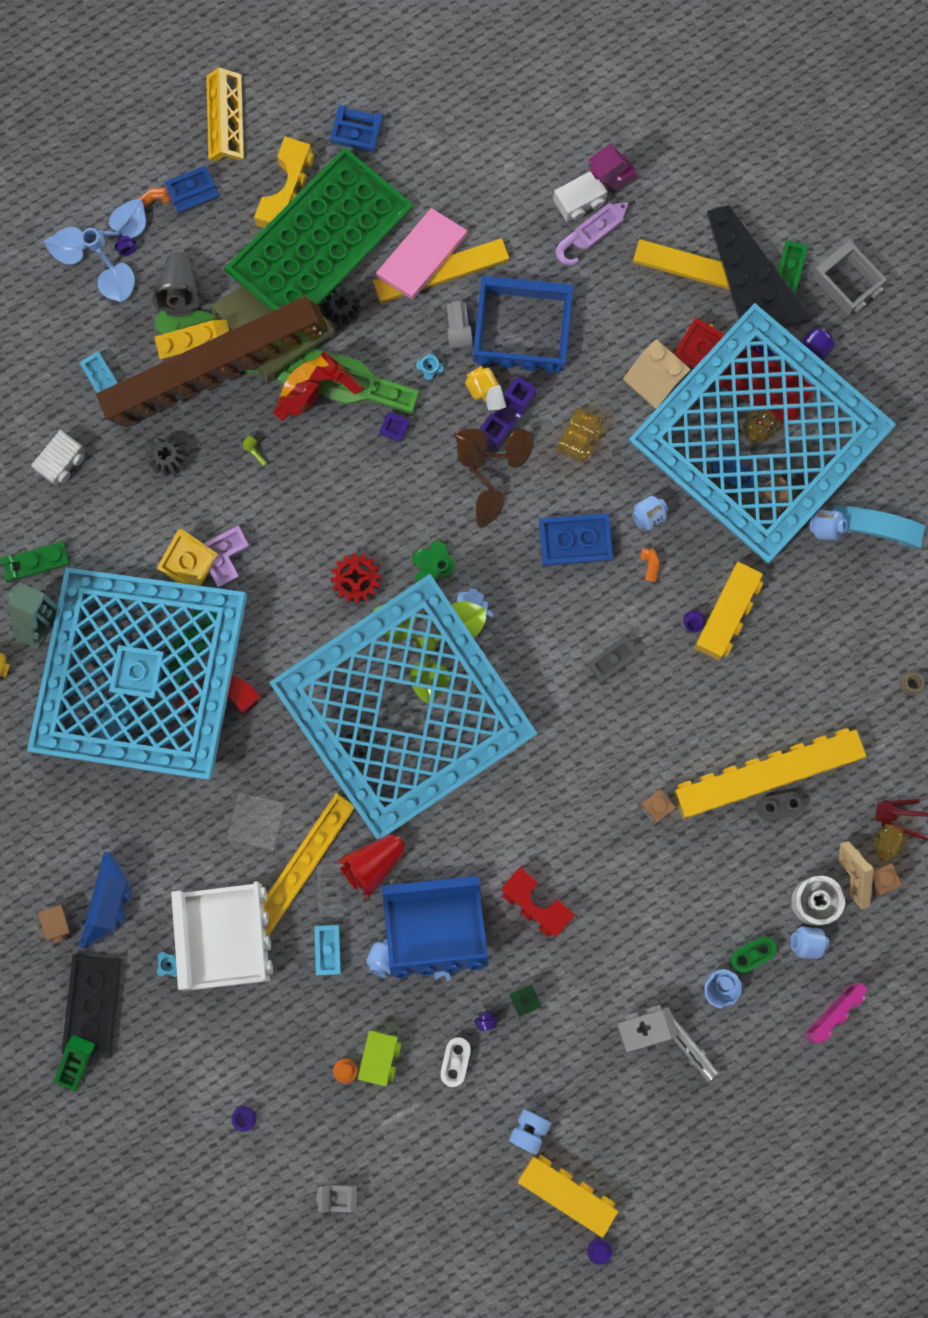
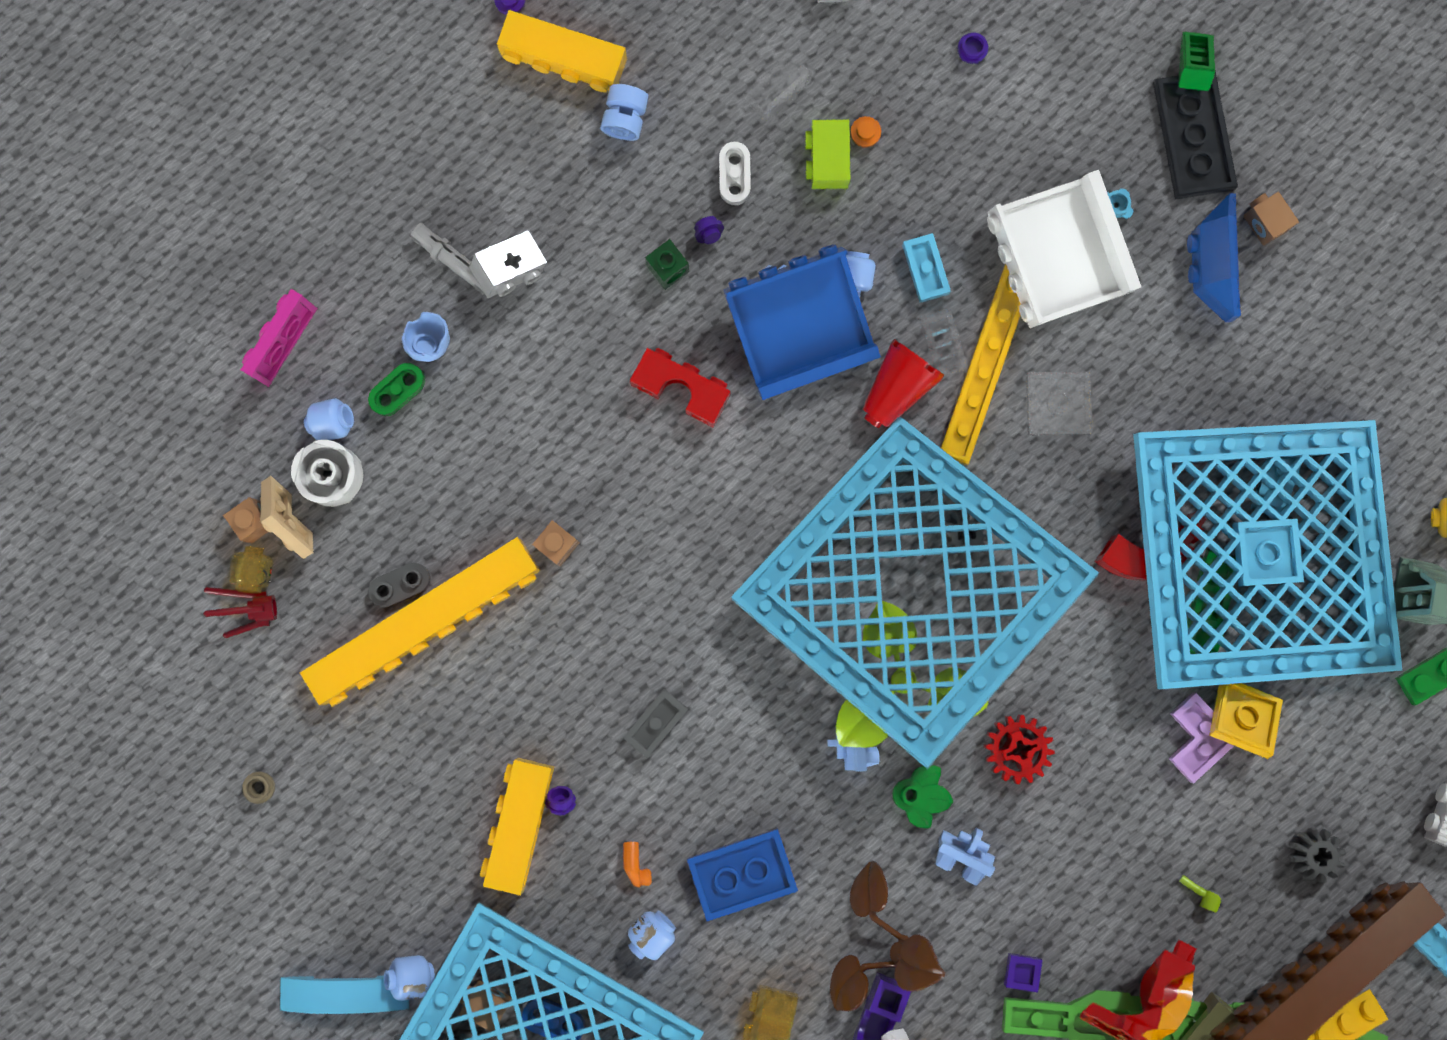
camera: 165 degrees right, 5 degrees up
(411, 516) = (967, 850): none -> light blue hips

